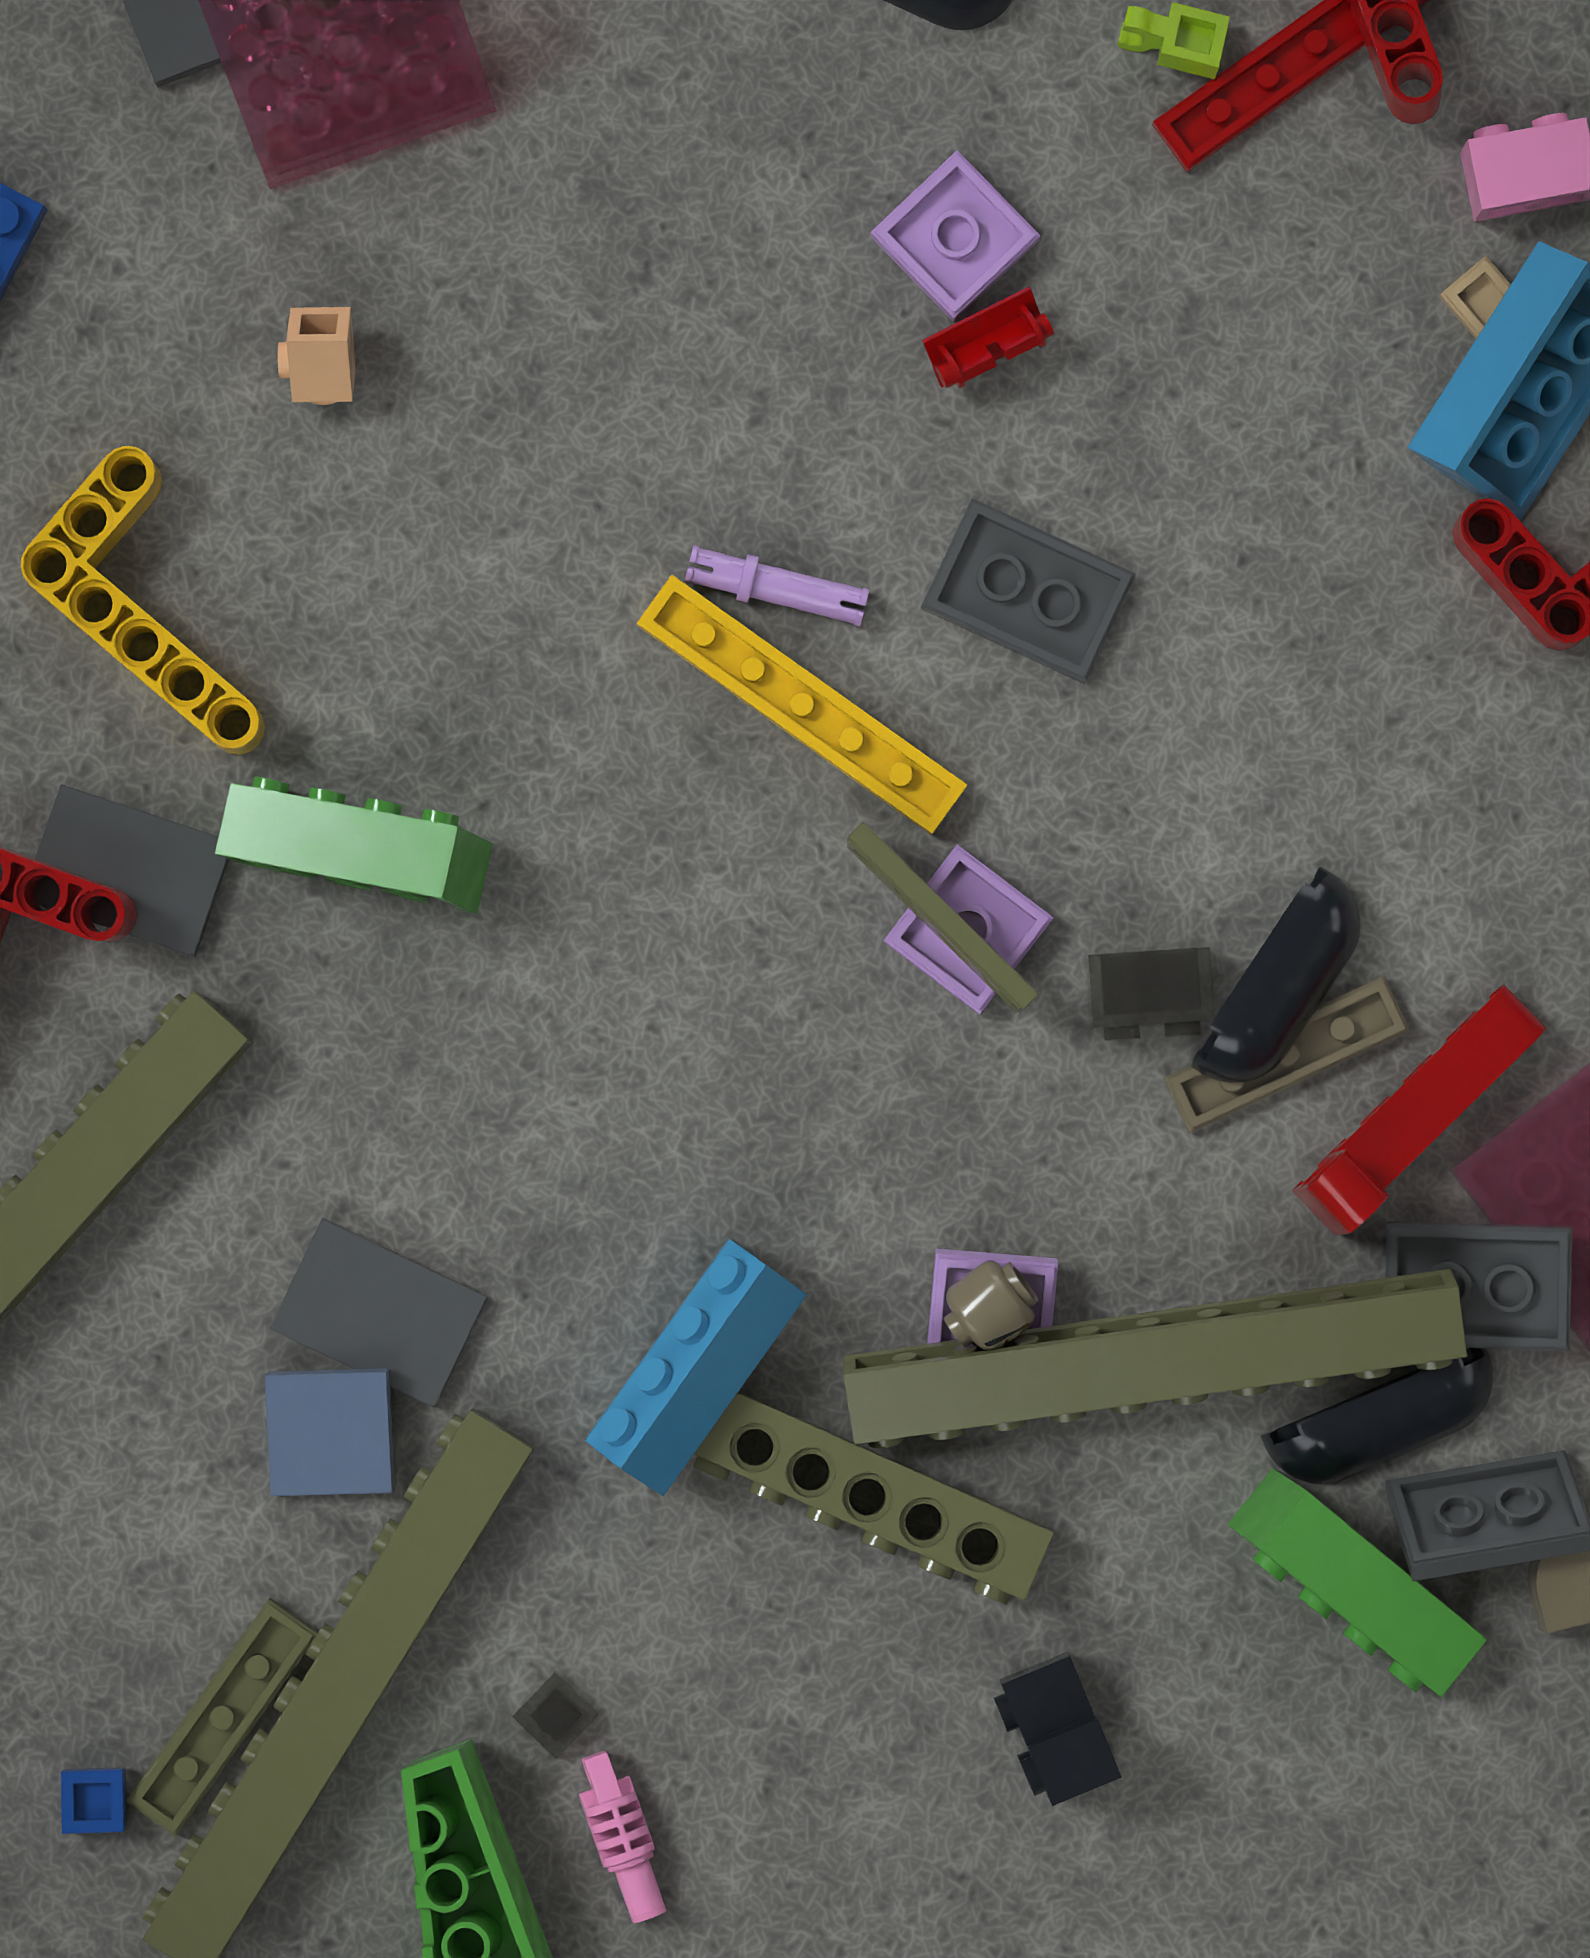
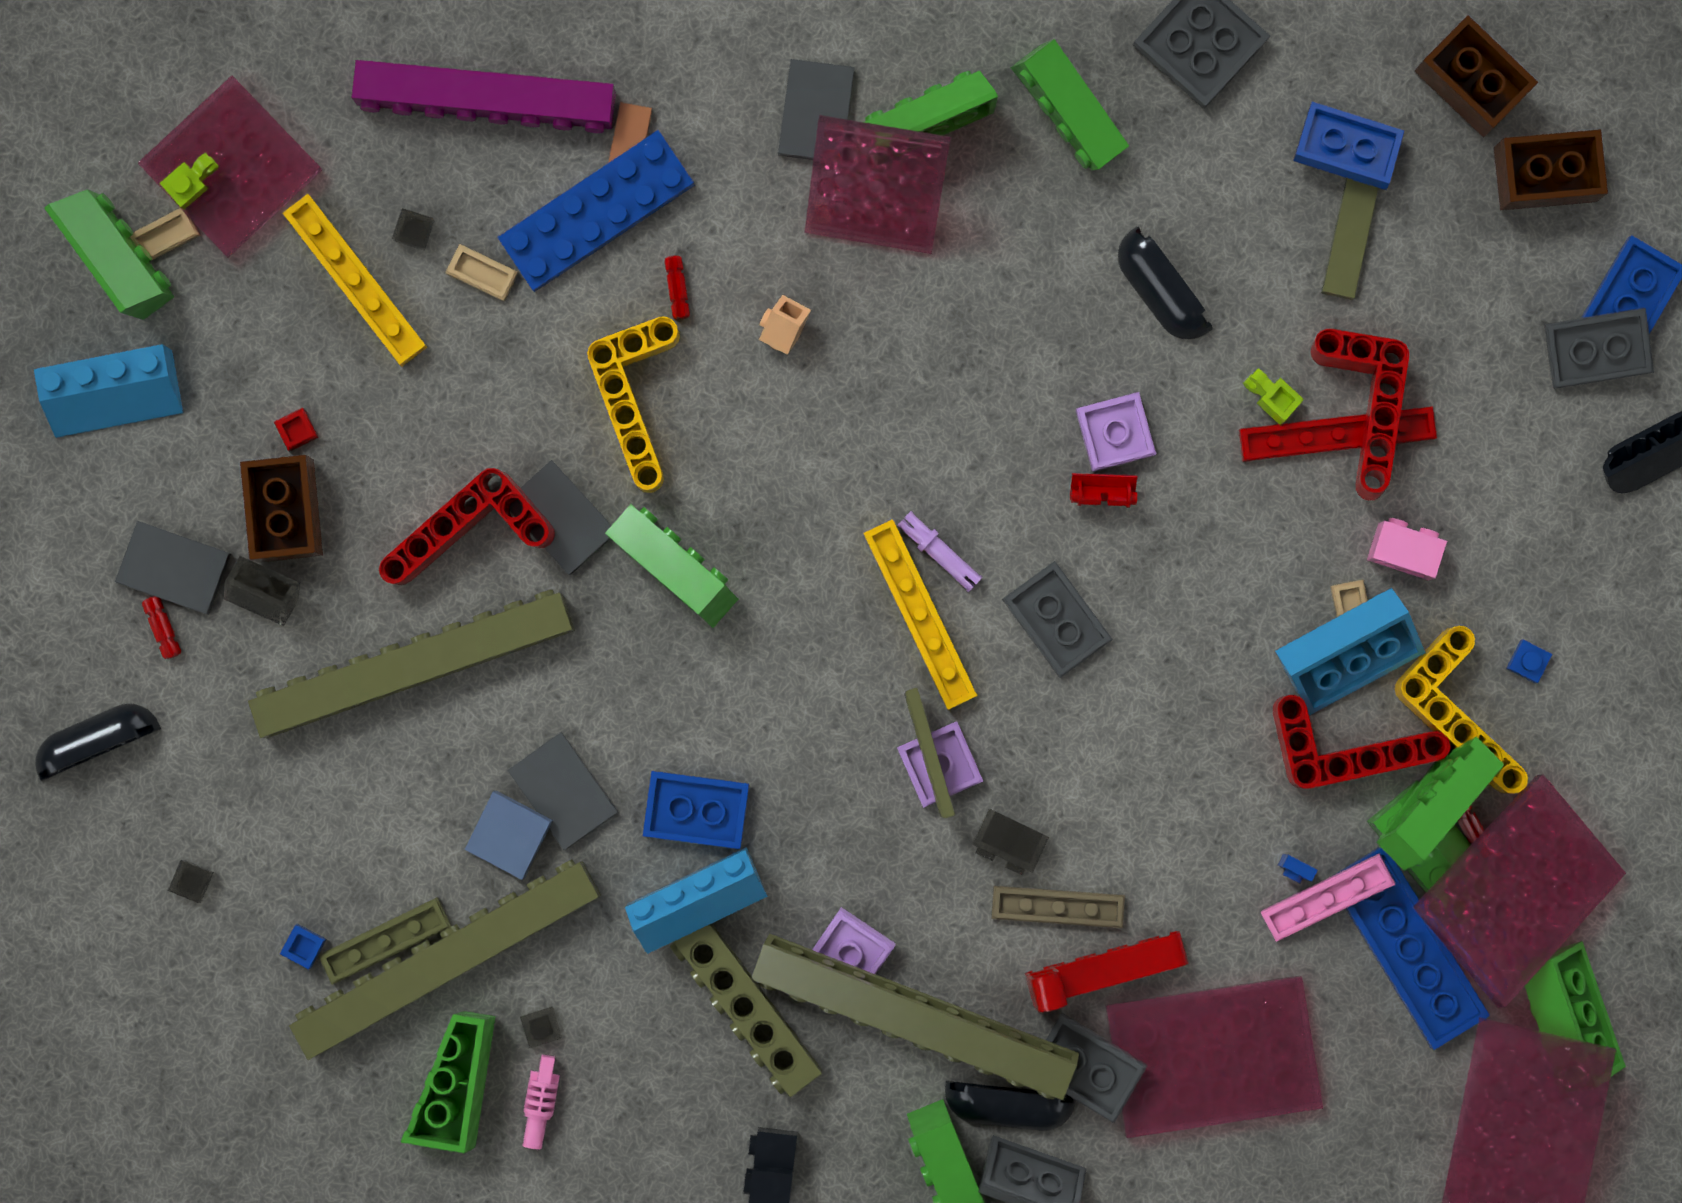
camera: 30 degrees right, 0 degrees up
(111, 391) = (677, 287): none -> red axle
(612, 1222) = (696, 809): none -> blue plate
(990, 1305) = (851, 949): dark tan head -> none
(1283, 983) = (1075, 872): black brick -> none

